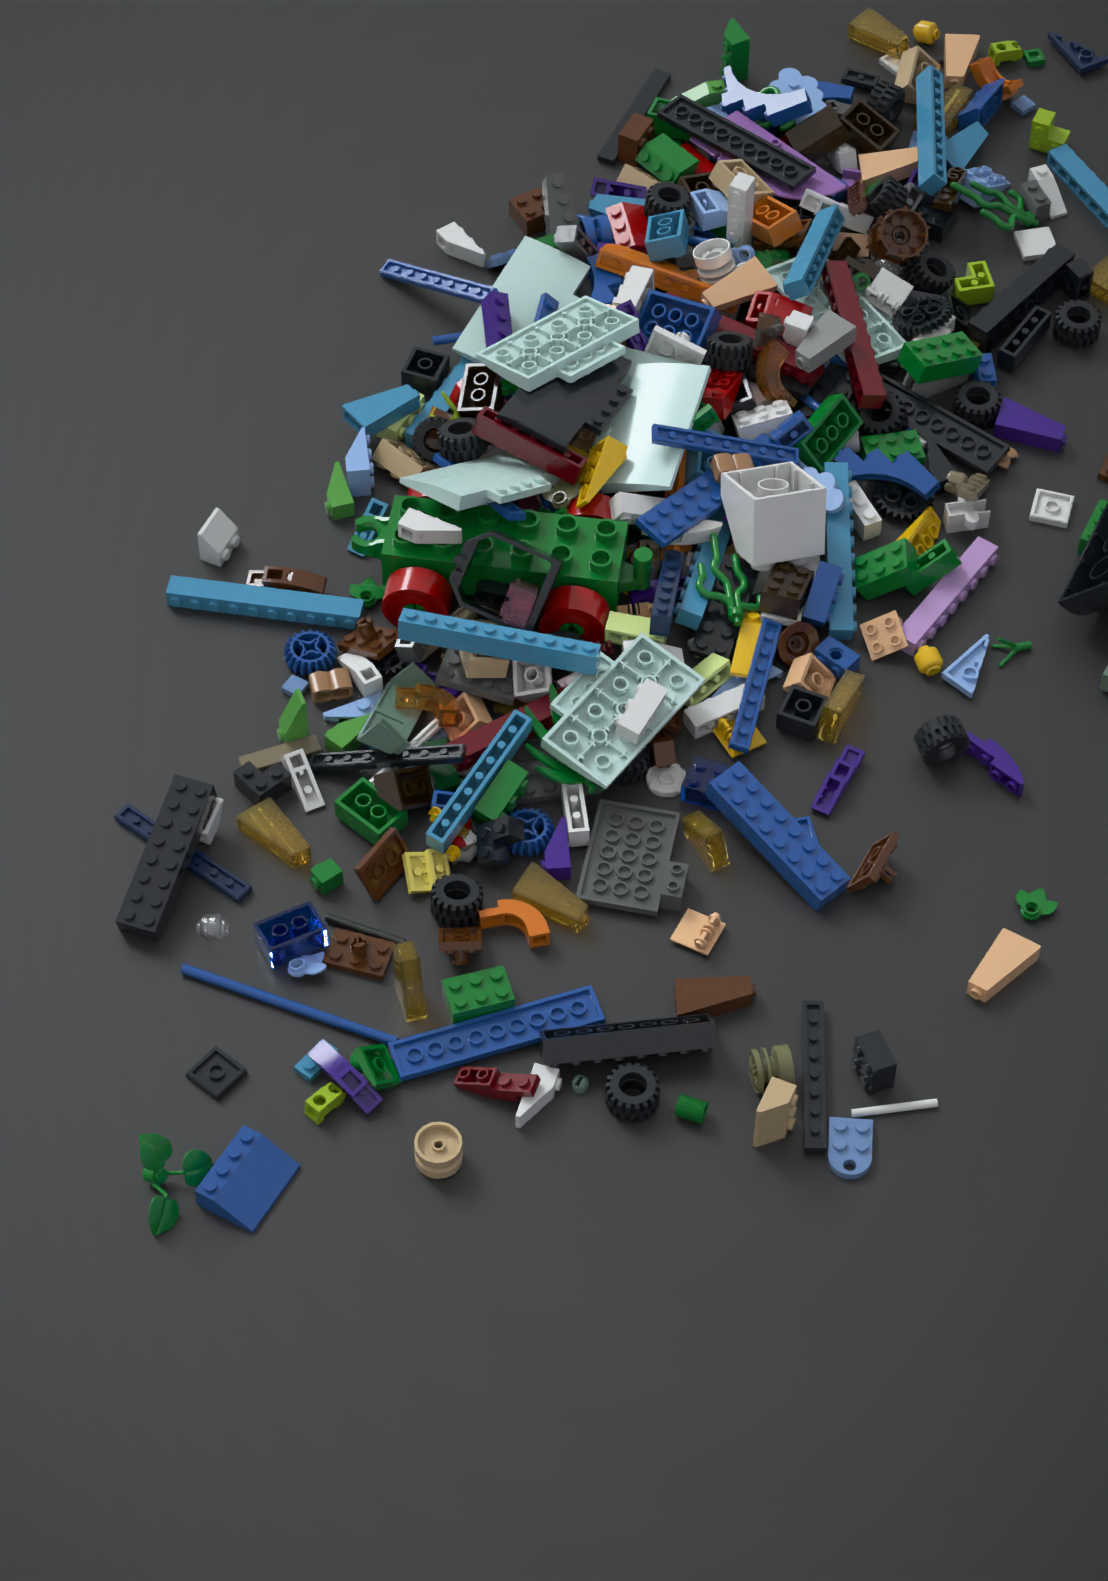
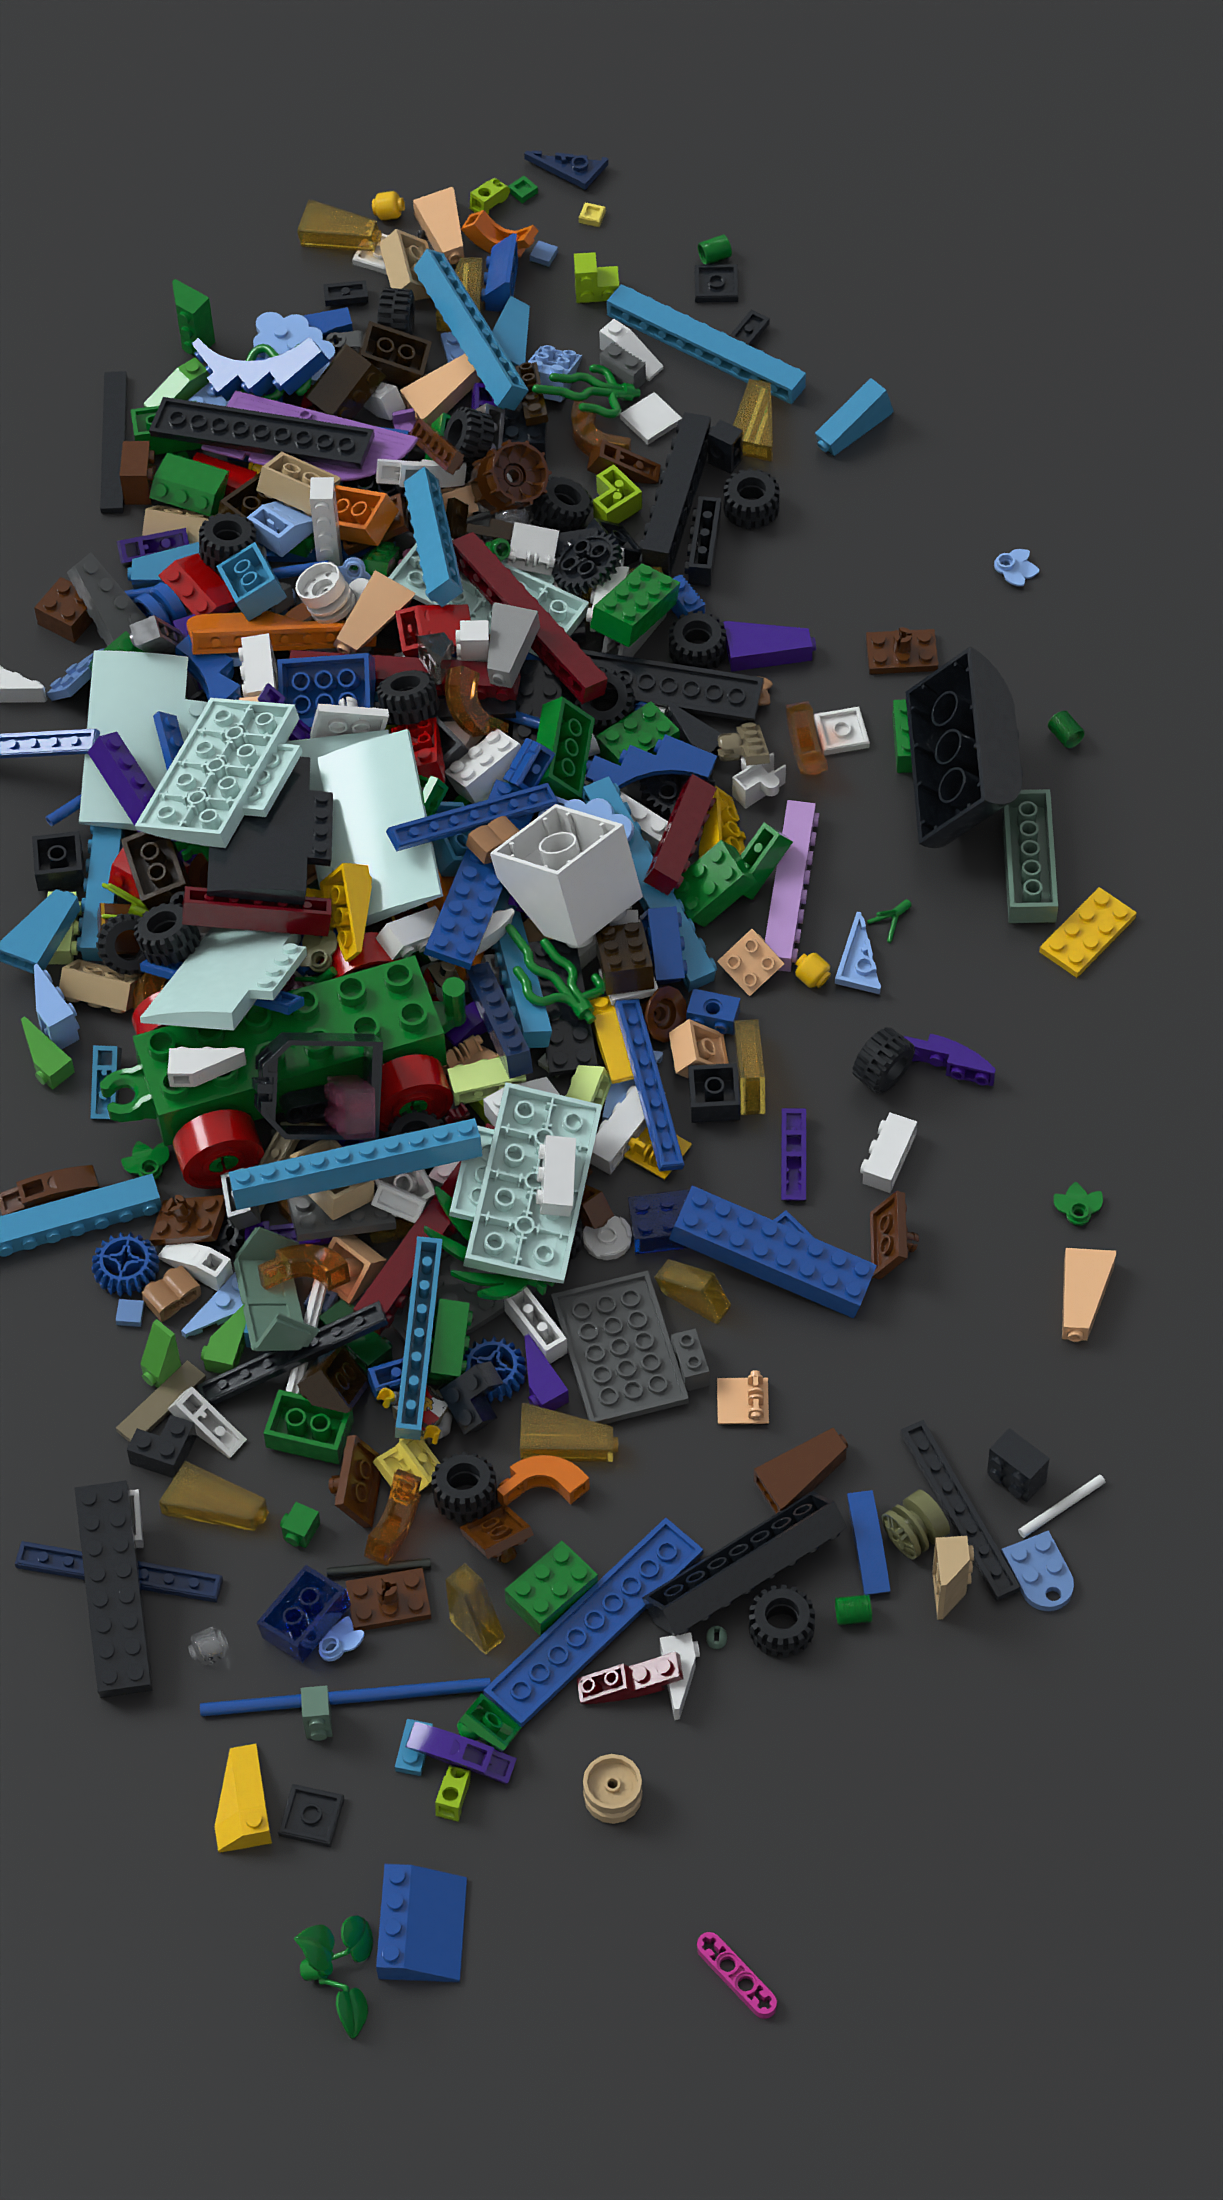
camera: 25 degrees left, 5 degrees up
(173, 1045) = (242, 1805): none -> yellow wedge
(258, 1003) = (316, 1712): none -> sand green brick
(392, 905) = (396, 1520): none -> clear orange arch
(453, 1320) = (733, 1977): none -> dark pink beam
(521, 685) = (398, 1202): none -> white tile
(730, 1068) = (868, 1542): none -> blue slope
(879, 525) = (680, 834): none -> dark red brick
(910, 807) = (888, 1152): none -> white brick
(983, 244) = (587, 435): none -> clear orange arch
(998, 266) = (632, 465): none -> reddish brown slope
(1018, 499) = (804, 738): none -> clear orange arch
(1075, 92) = (592, 214): none -> light yellow tile

